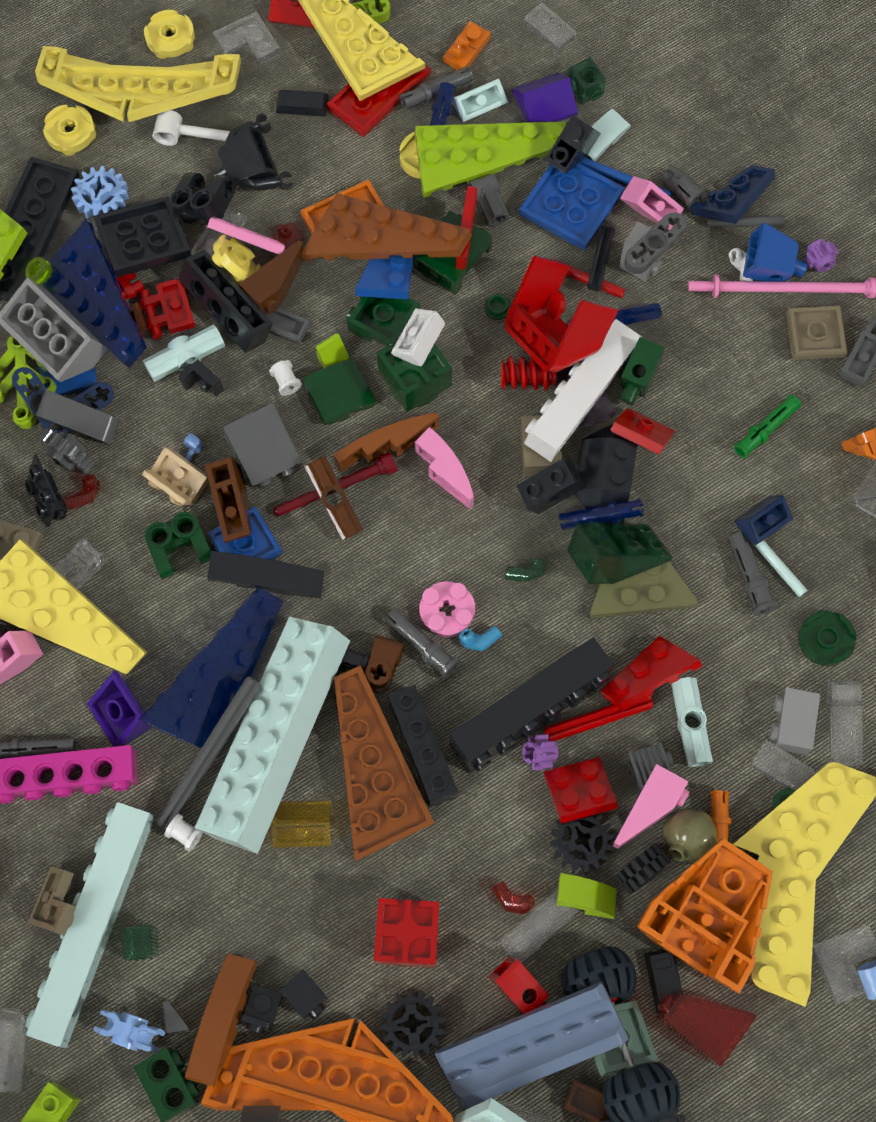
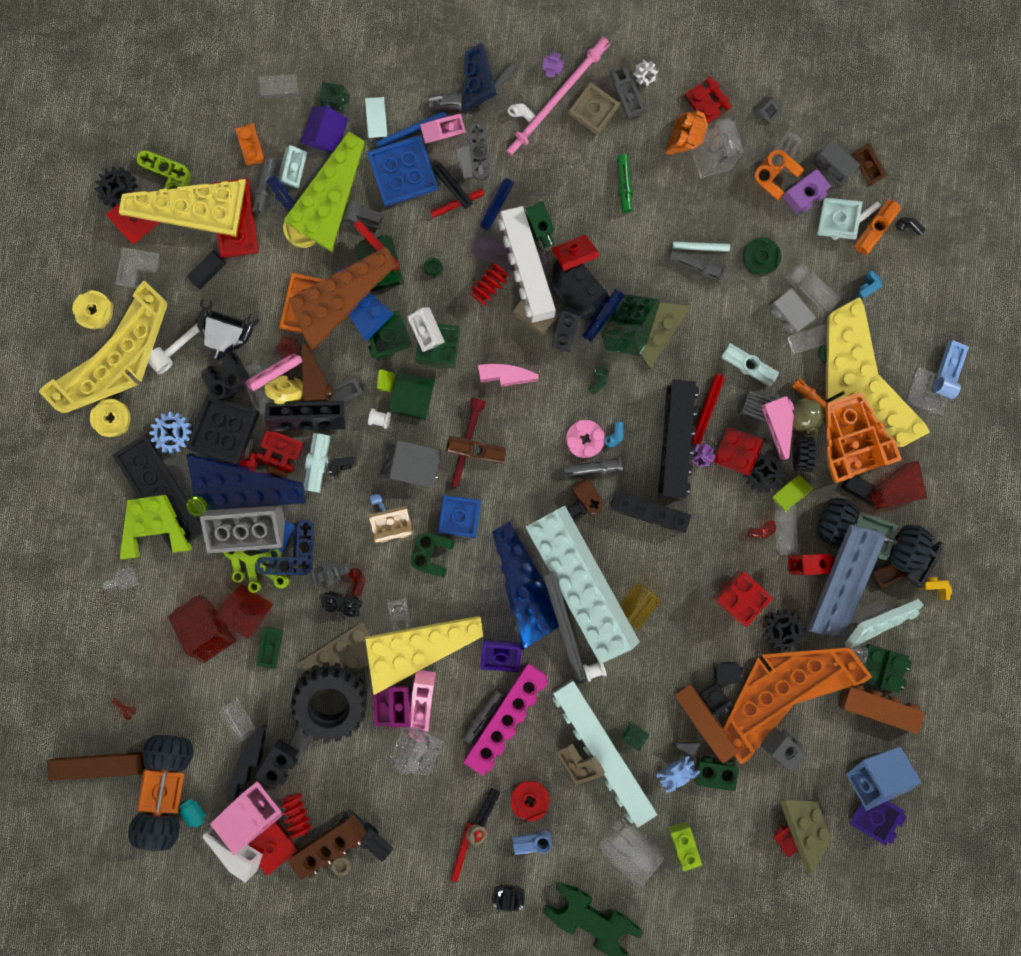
camera: 55 degrees left, 15 degrees up
(77, 417) = (310, 552): dark grey beam -> none
(229, 498) = (431, 506): reddish brown slope -> none
(265, 574) = (489, 520): black slope -> none
(378, 782) = (653, 551): dark orange wing -> none
(394, 437) = (466, 387): dark orange slope -> none
(537, 323) = (474, 257): red windscreen -> none
(572, 145) = (372, 141): black slope -> none
(650, 669) = (707, 361): red wing -> none
(764, 518) = (674, 231): dark blue slope -> none
(772, 256) = (531, 92): blue torso -> none

